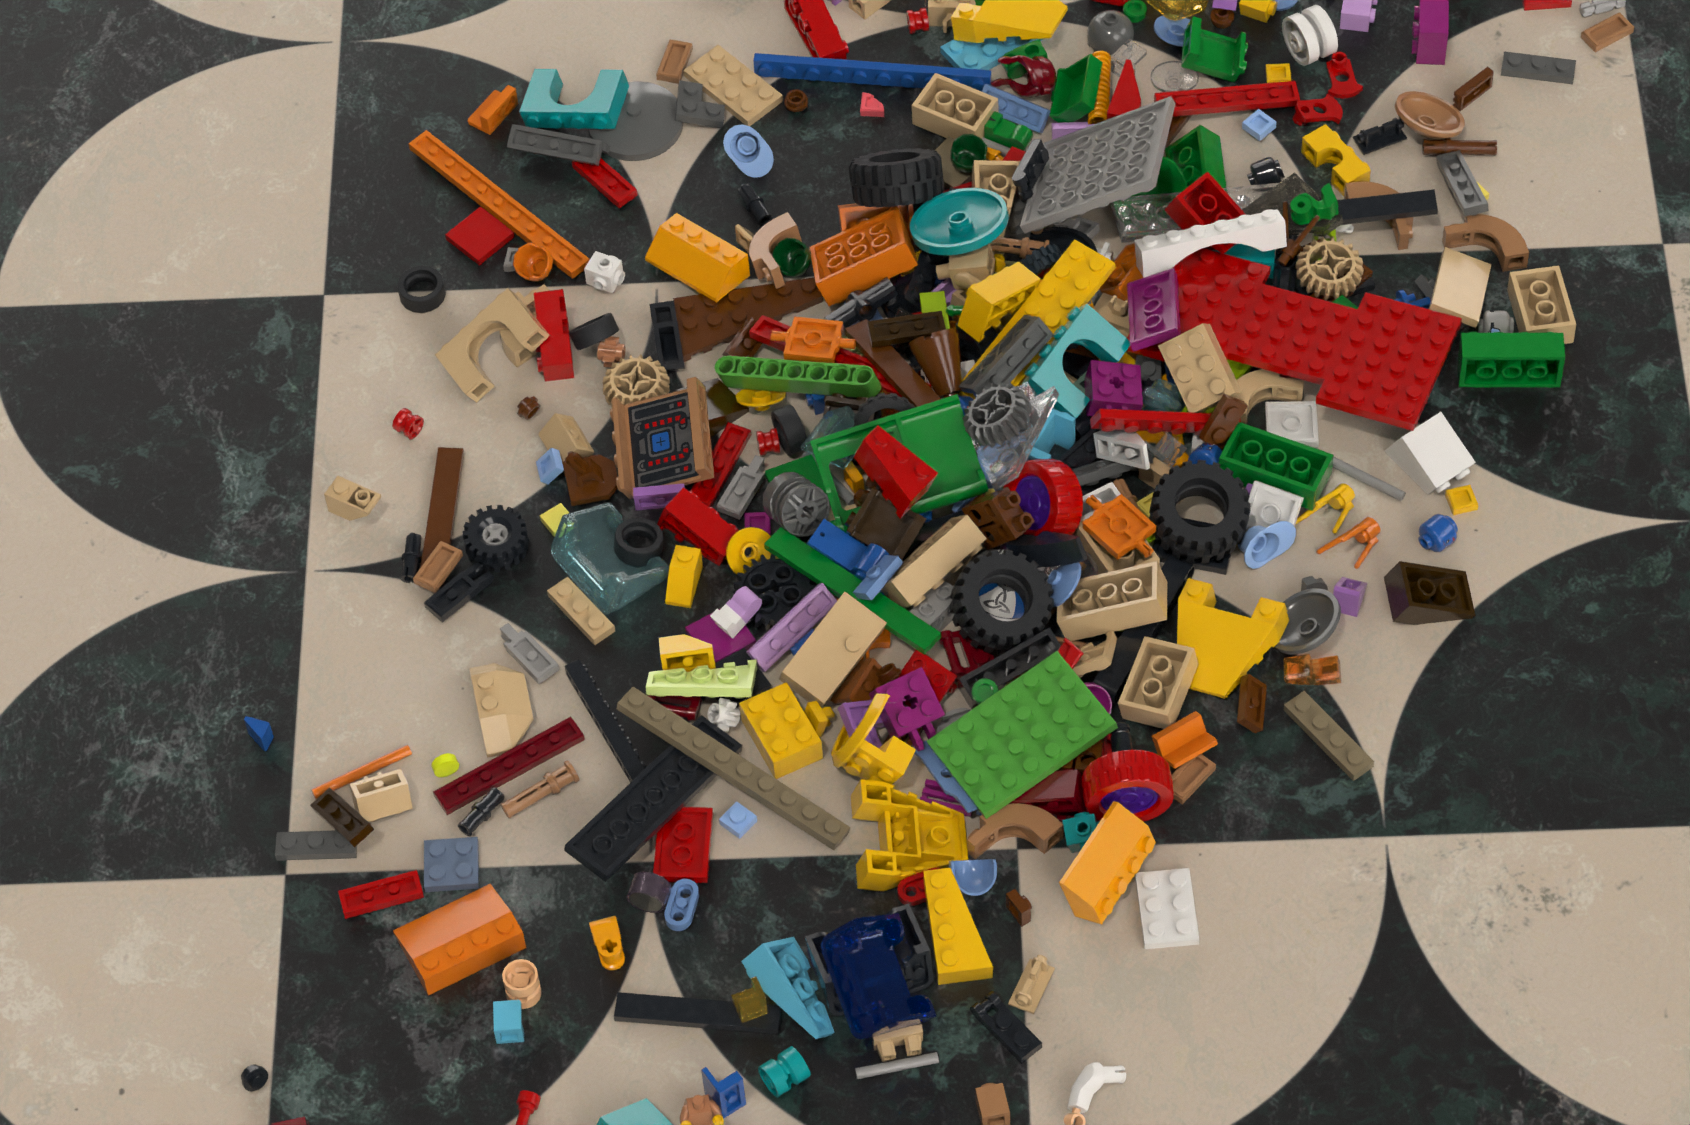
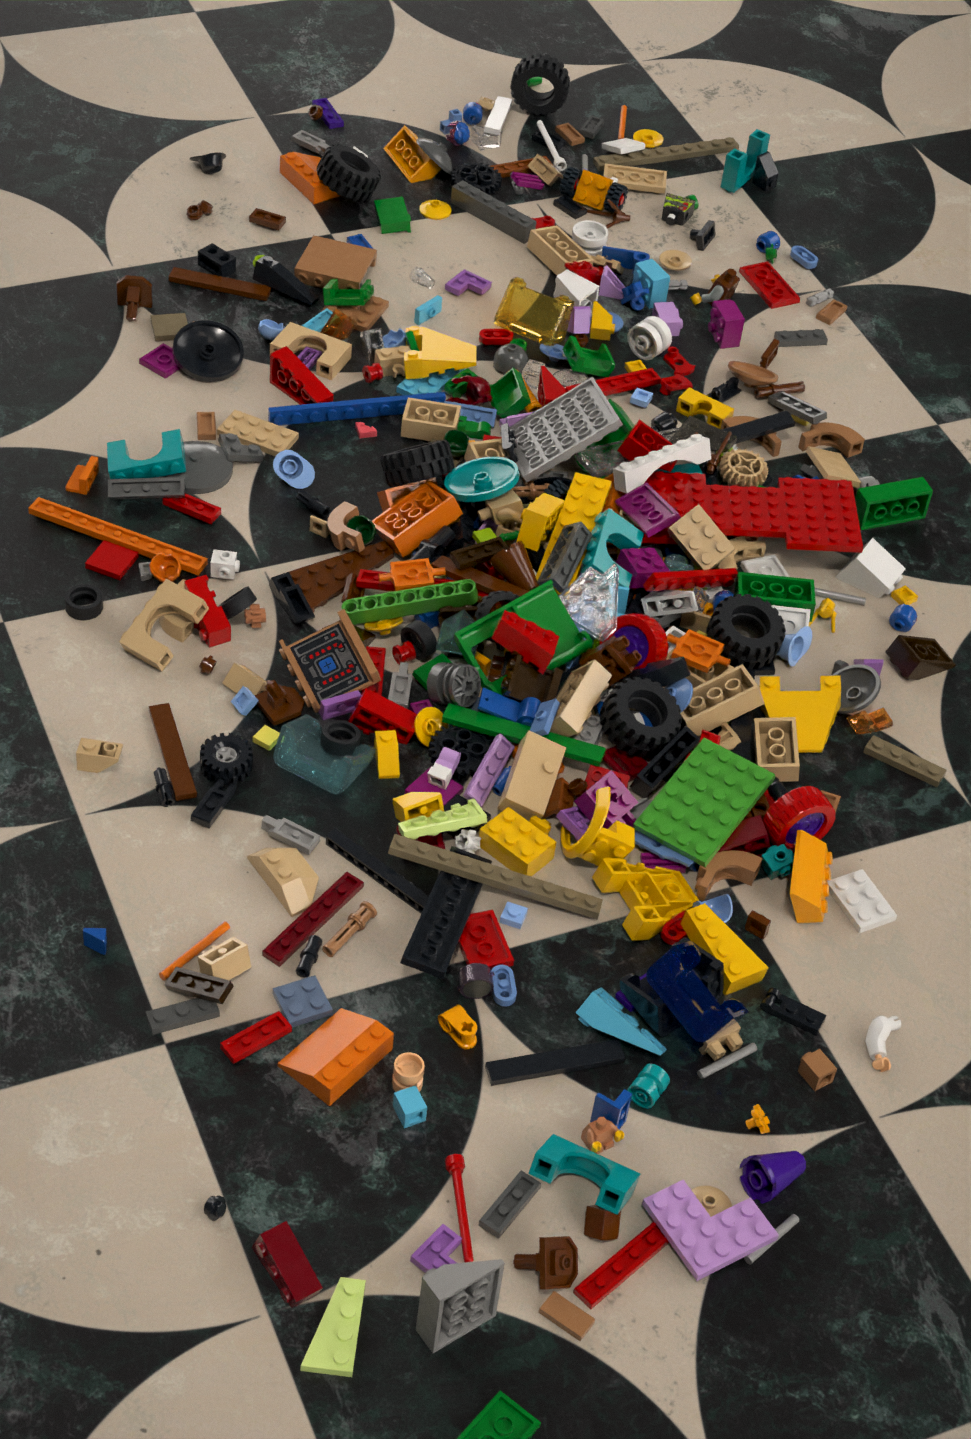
camera: 30 degrees left, 10 degrees down
(408, 423) = (117, 694): red wheel -> none
(438, 566) = (189, 788): medium nougat tile -> none
(445, 765) = (263, 928): neon yellow tile -> none
(581, 611) = (316, 796): tan plate -> none
(635, 380) = (280, 627): tan gear -> none
(698, 258) = (291, 541): light orange slope -> none
(750, 1002) = (597, 1040): clear yellow panel -> none
(796, 100) = (309, 435): reddish brown plate -> none
(983, 690) = (659, 779): green tile -> none
(997, 414) = (584, 589): dark grey gear -> none
(1032, 984) = (795, 976): tan hinge -> none
(1183, 740) = (812, 777): orange panel -> none
(1223, 421) = (730, 571): reddish brown plate -> none
(1251, 703) = (841, 747): reddish brown plate -> none
(1305, 207) = (717, 431): green leg -> none
(1363, 532) = (854, 628): orange plant -> none
(1541, 302) = (888, 464): tan brick -> none

